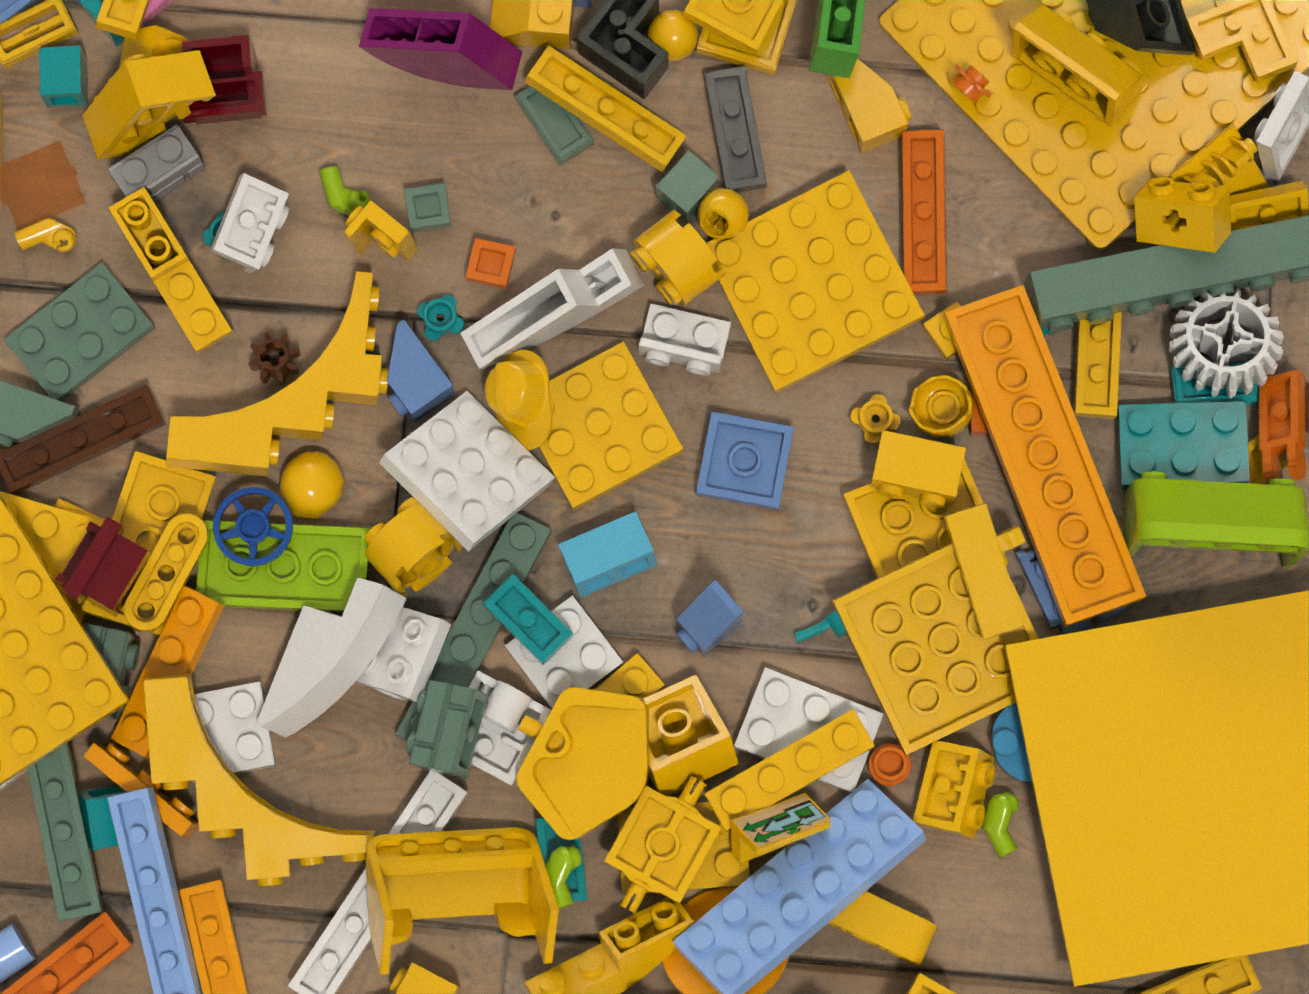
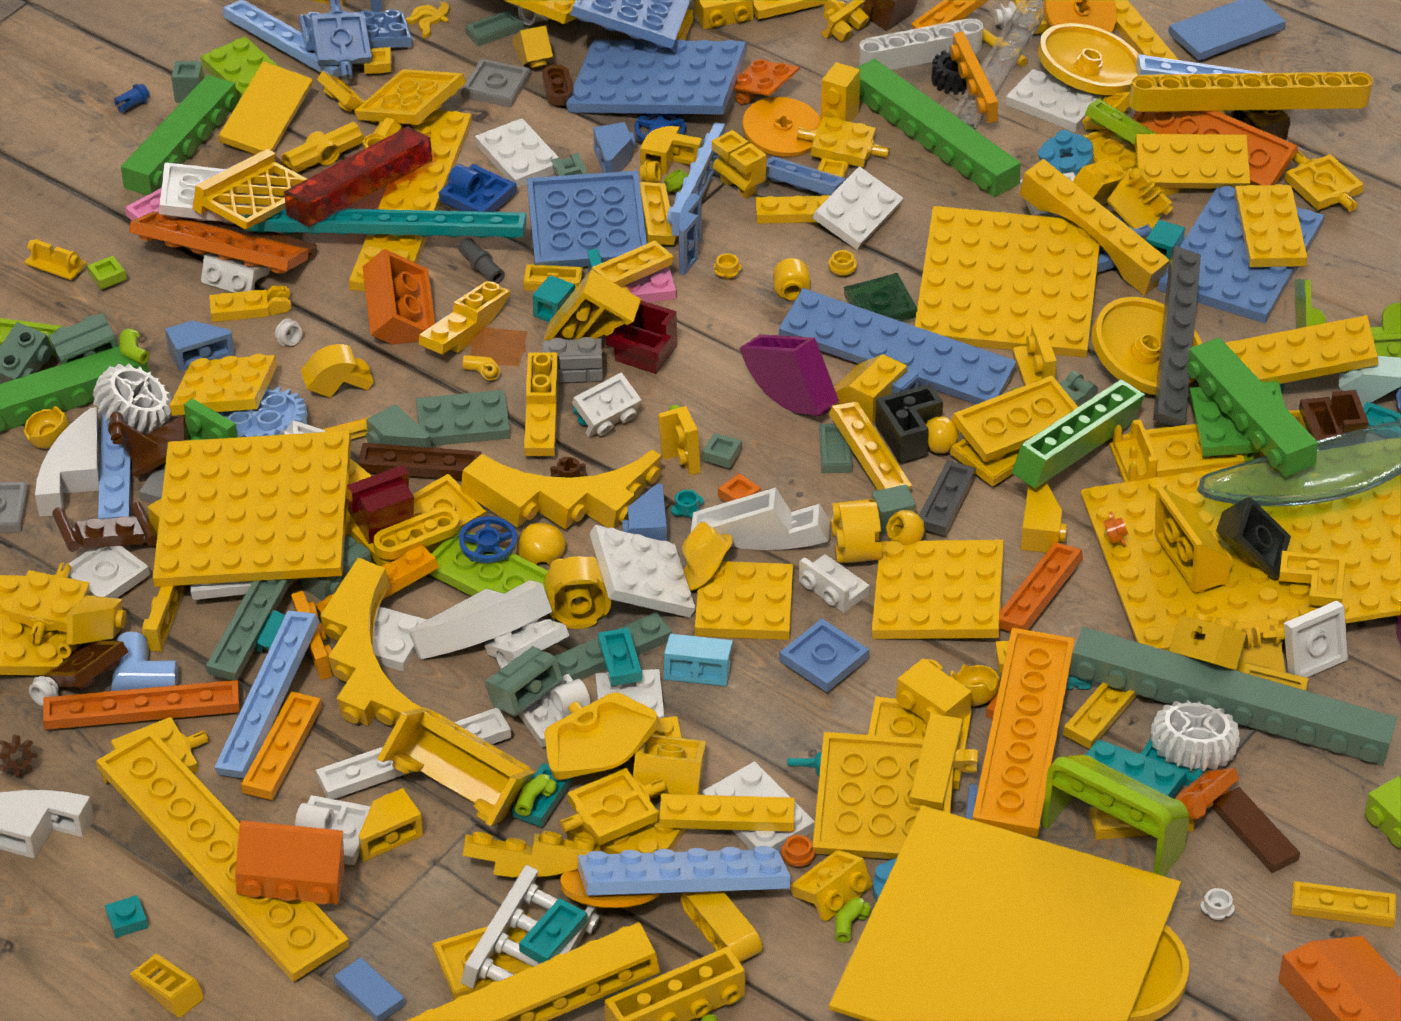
camera: 30 degrees right, 35 degrees down
(709, 620) = (737, 713): medium blue slope -> none
(776, 827) = (687, 833): panel -> none

